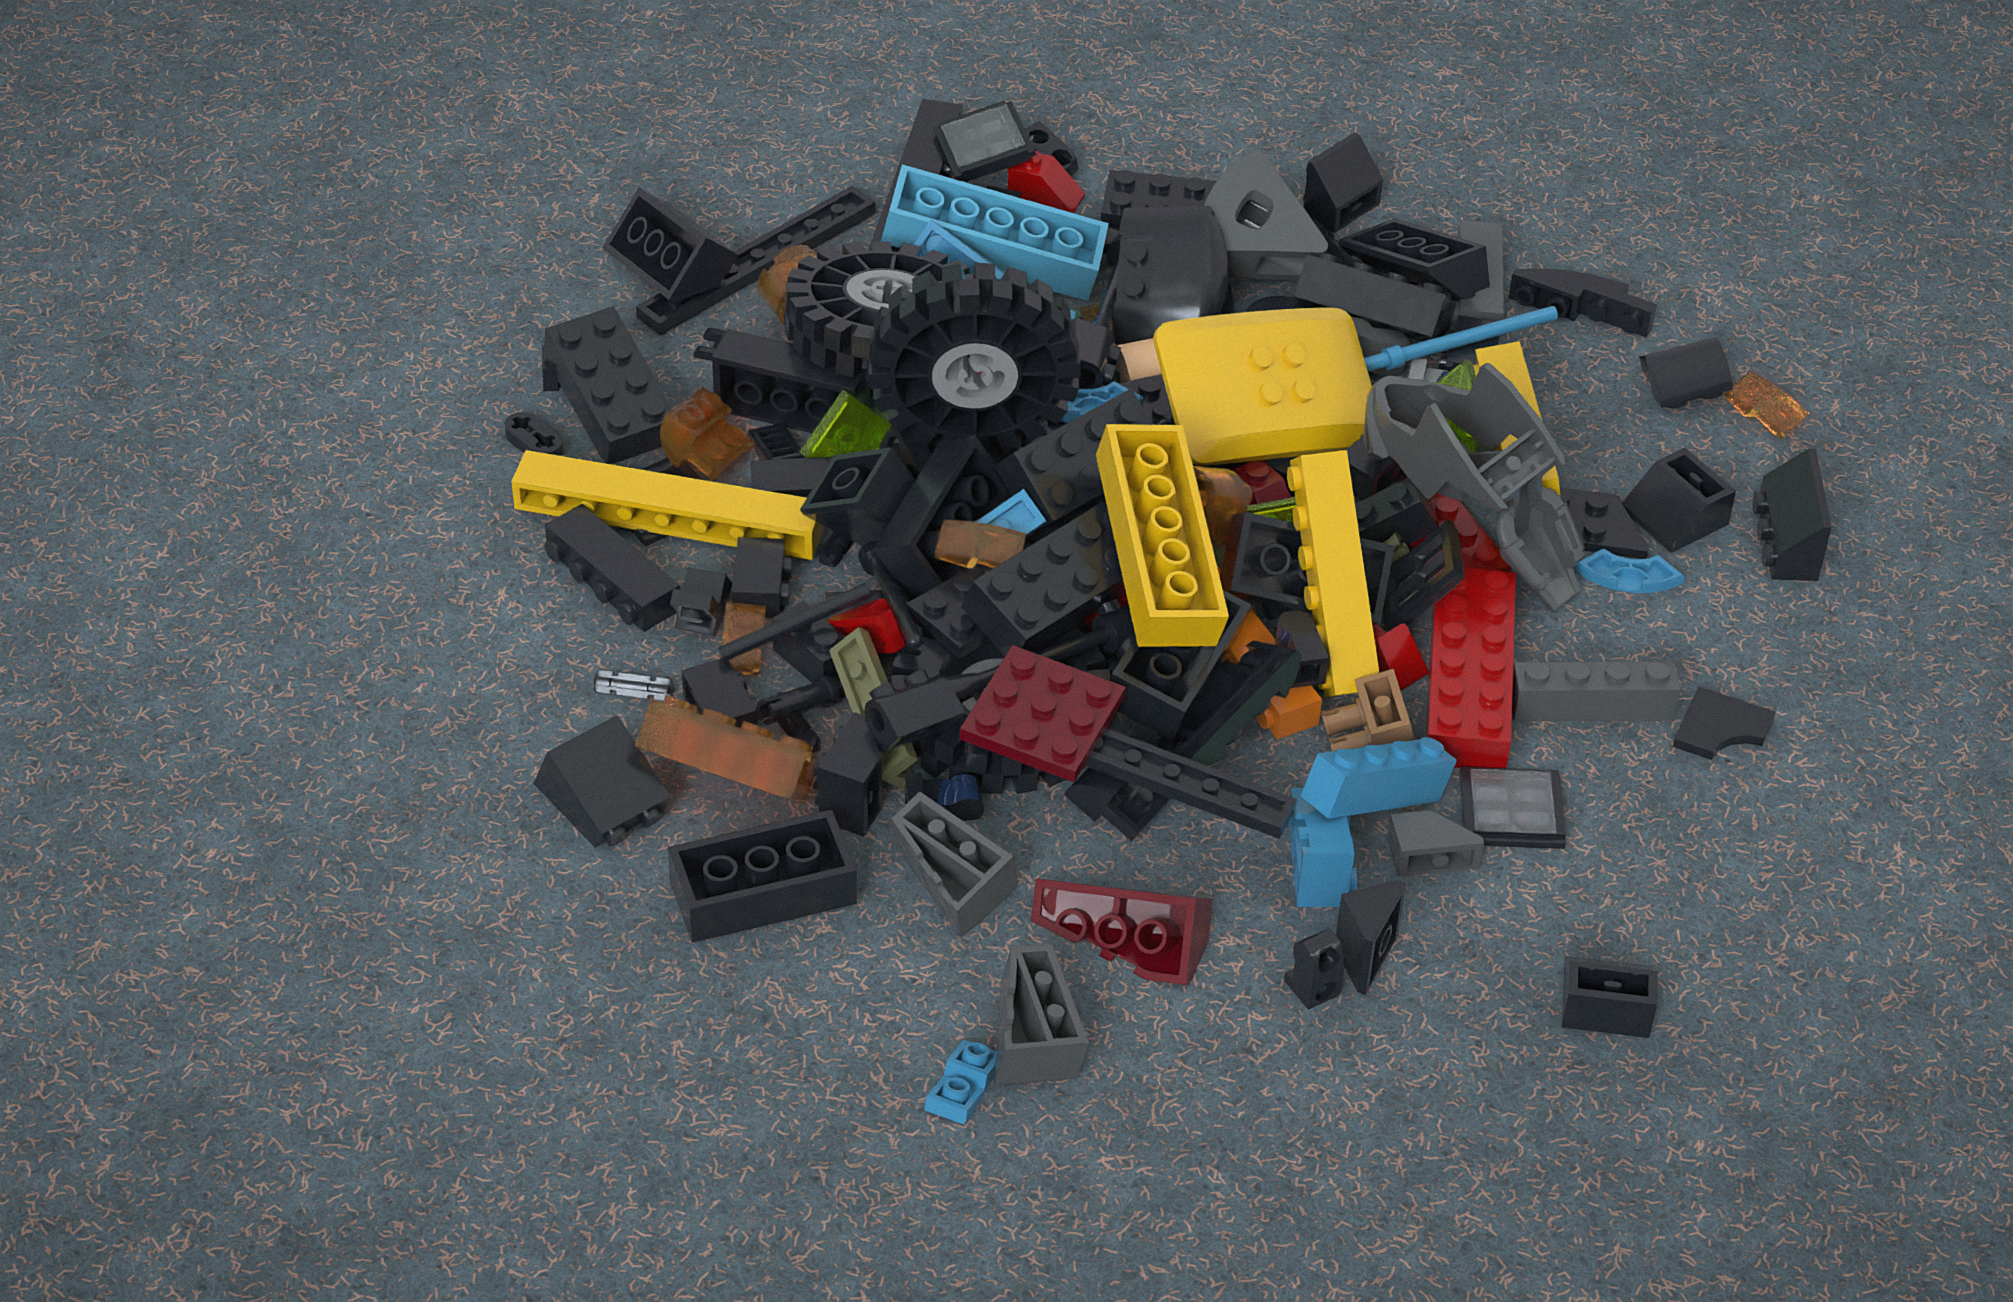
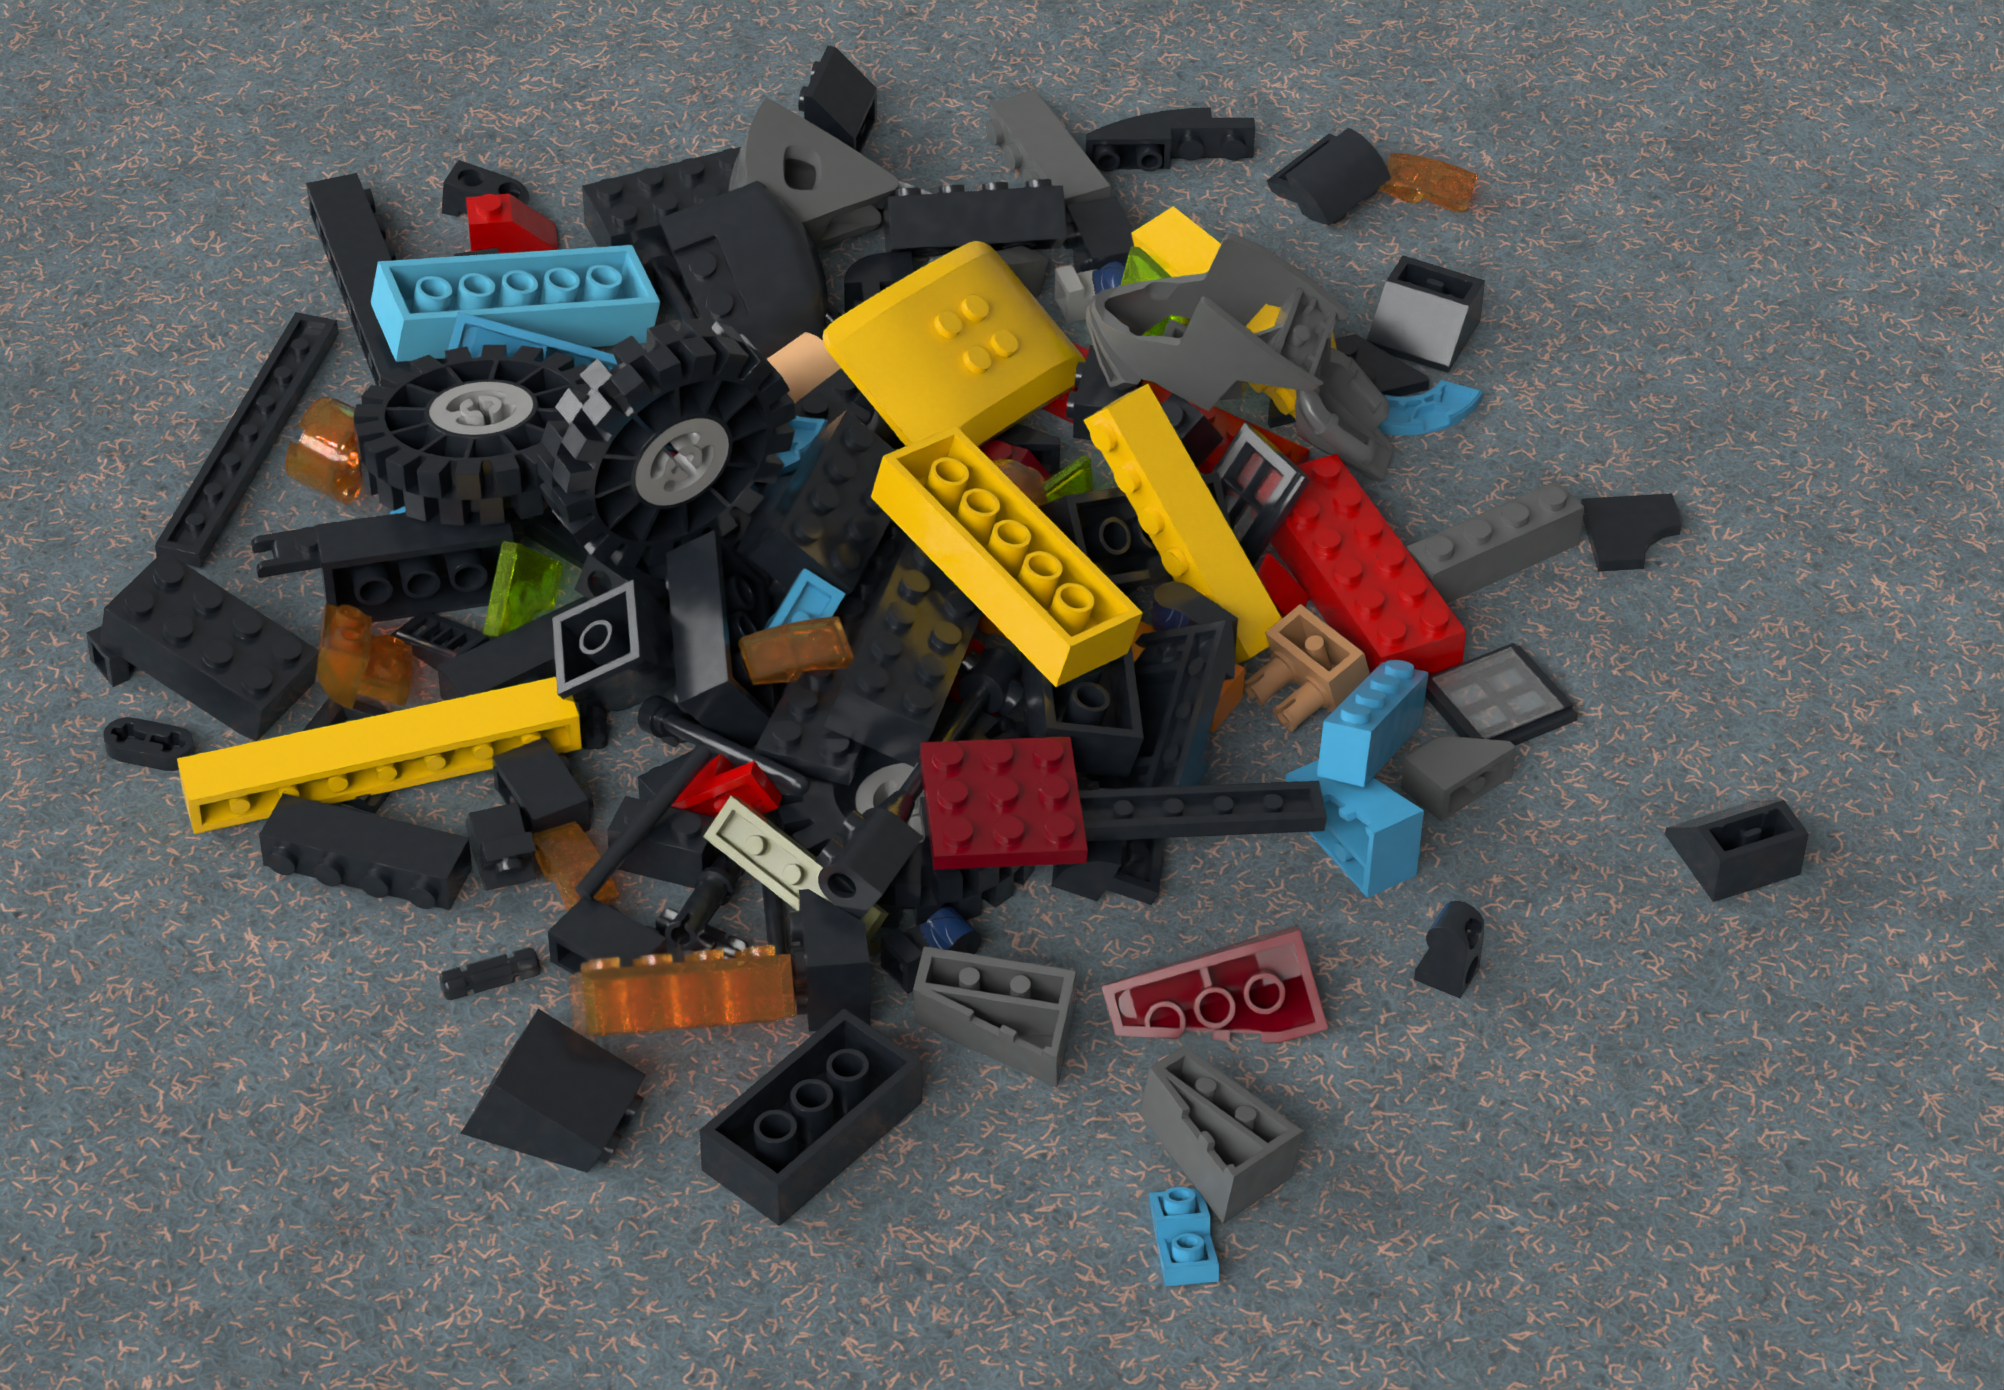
camera: 30 degrees left, 0 degrees up
(668, 248) = (146, 464): black slope -> none
(984, 141) = (423, 204): piece -> none
(1369, 929) = (1479, 876): black slope -> none
(1396, 356) = (1044, 272): dark azure bar -> none
(1422, 256) = (992, 153): black slope -> none
(1793, 519) = (1552, 286): black slope -> none

